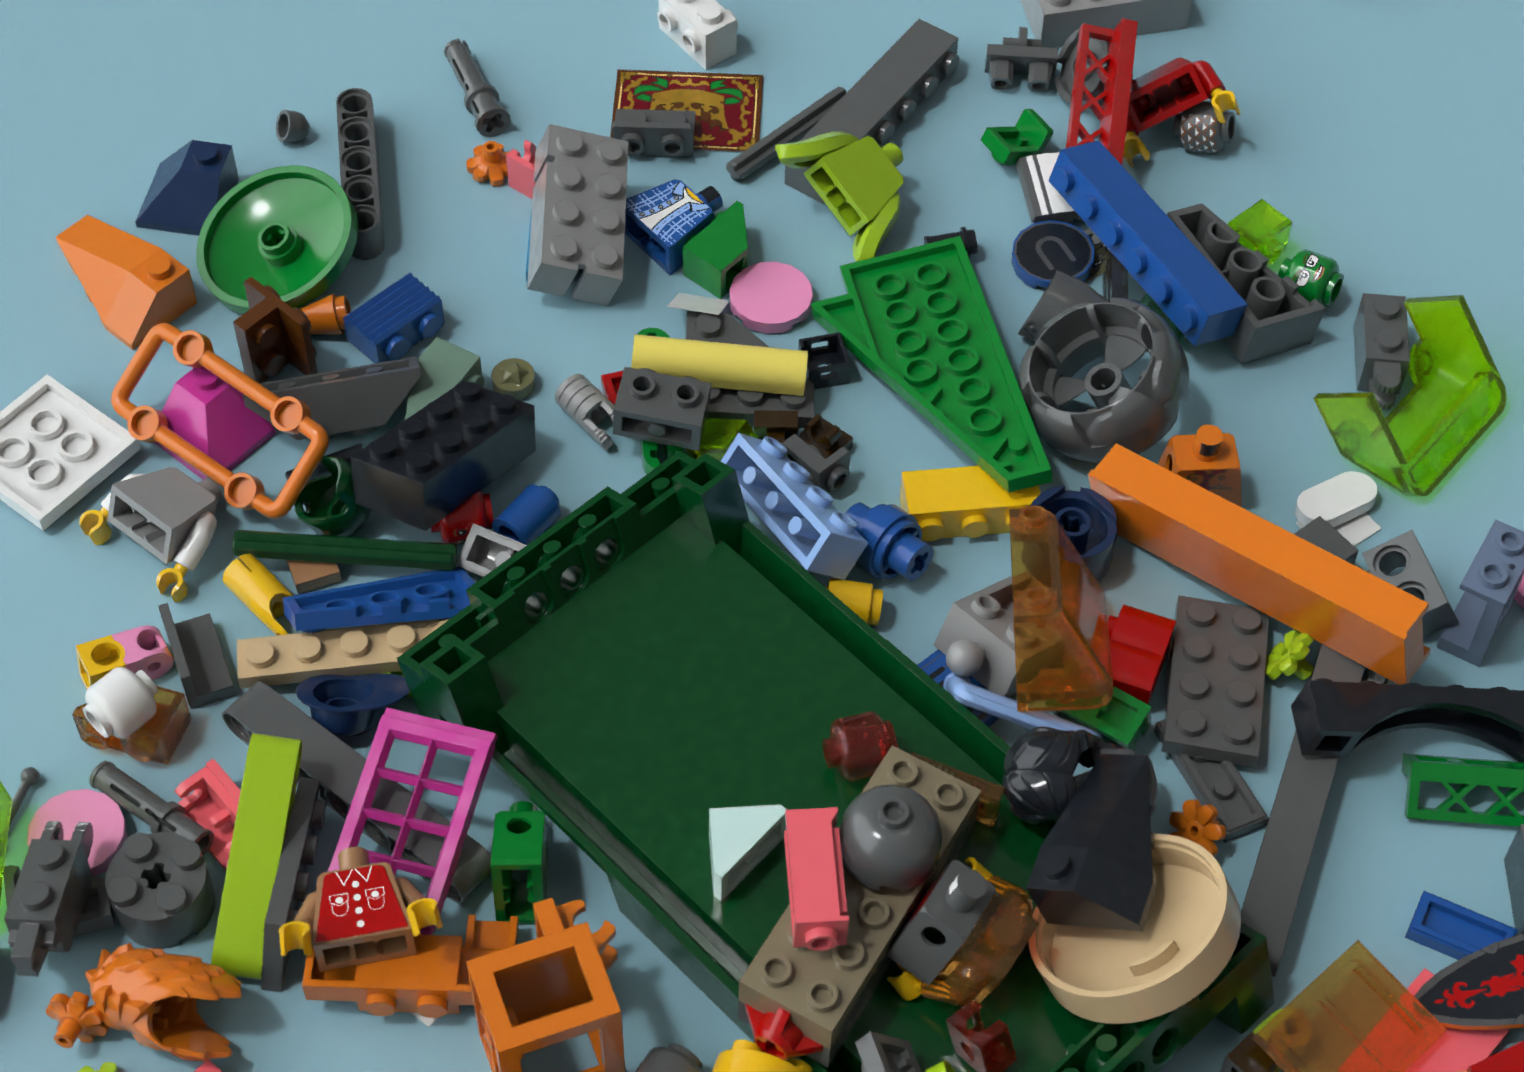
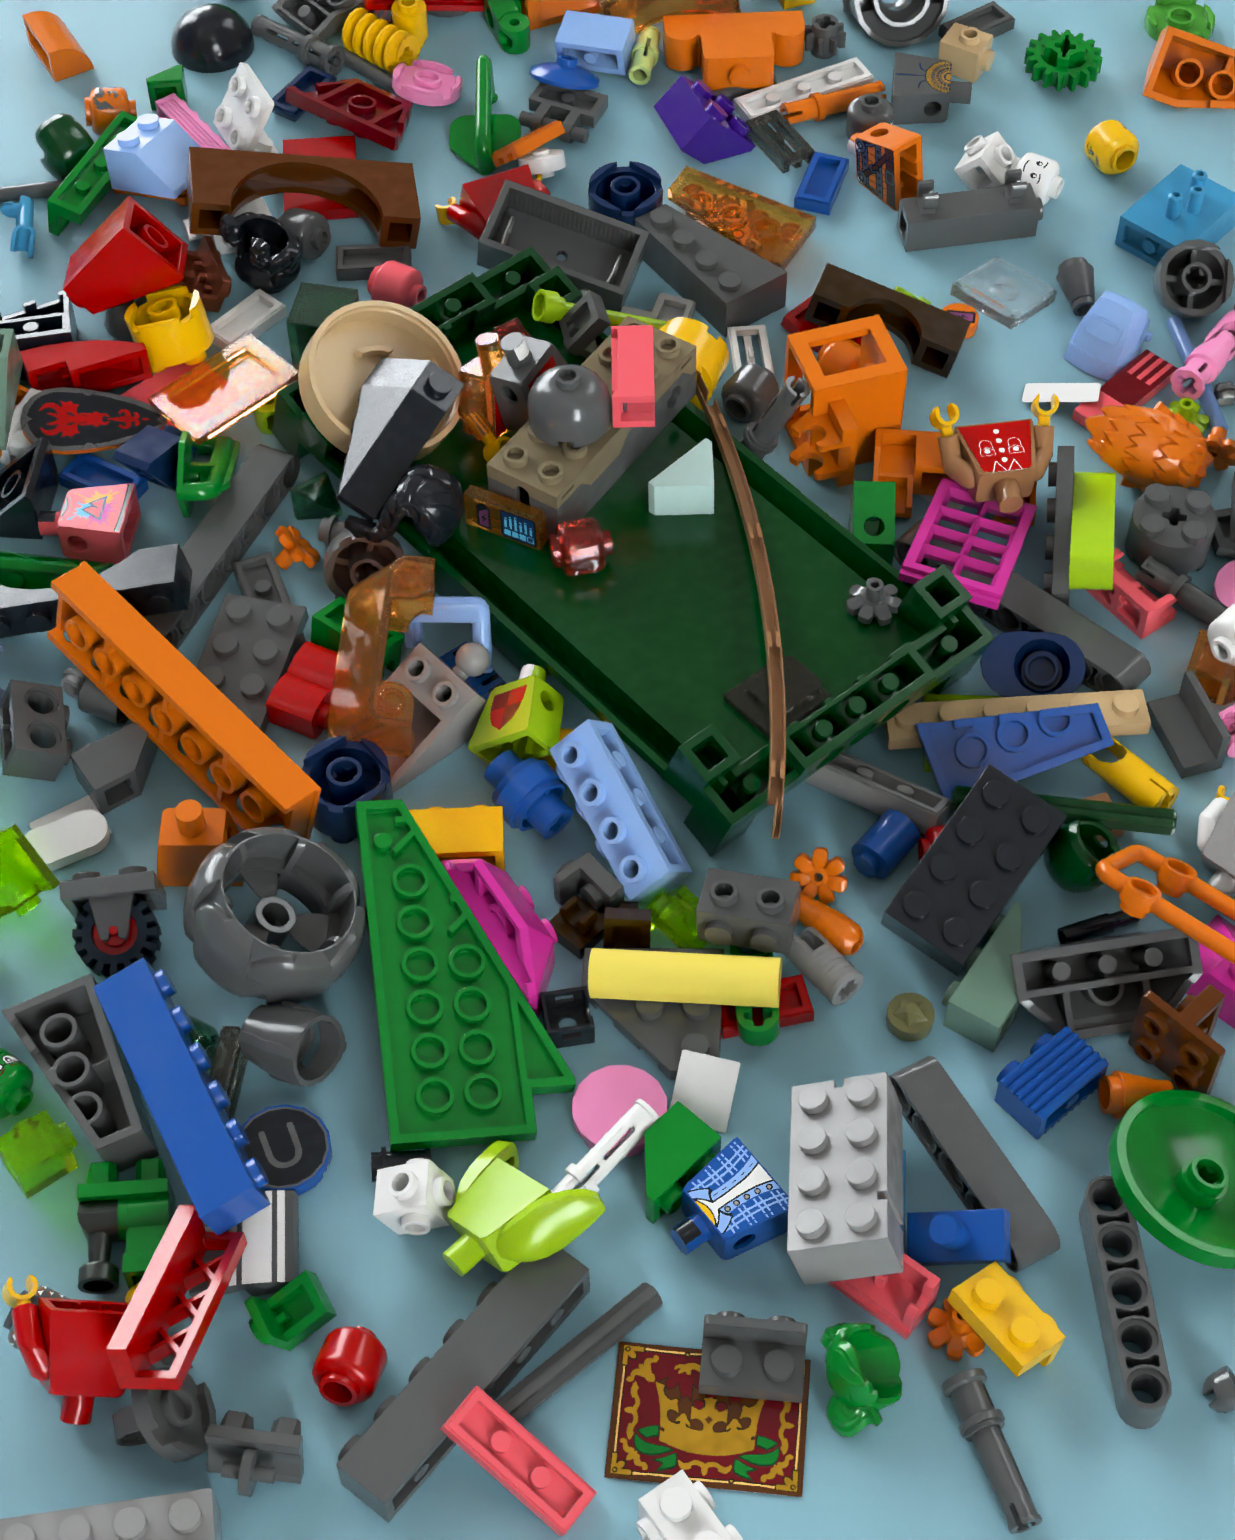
camera: 175 degrees left, 0 degrees up
(454, 145) = (1007, 1319): none -> yellow bracket
(472, 263) = (972, 1158): none -> dark grey beam
(489, 194) = (959, 1237): none -> blue tile
(525, 708) = (873, 602): none -> dark grey plant
(572, 108) = (862, 1375): none -> green hair
(589, 452) = (833, 925): none -> orange piece
(591, 486) = (819, 875): none -> orange plant
(634, 597) = (802, 695): none -> clear smoke piece
(651, 711) = (766, 599): none -> medium nougat piece
(651, 979) = (762, 434): none -> dark grey pin
(794, 236) = (638, 1120): none -> white pin
(827, 55) = (518, 1461): none -> coral tile
(892, 420) = (509, 923): none -> dark pink wedge
(903, 596) = (519, 718): none -> lime torso
(933, 207) = (413, 1197): none -> white brick
(963, 110) = (349, 1365): none -> red head
(1174, 160) = (119, 1212): none -> green hips
(1262, 409) = (115, 917): none -> plate
(1316, 908) = (204, 480): none -> green piece
(1402, 912) = (153, 455): none -> dark blue slope
(1441, 844) = (95, 523): none -> coral torso

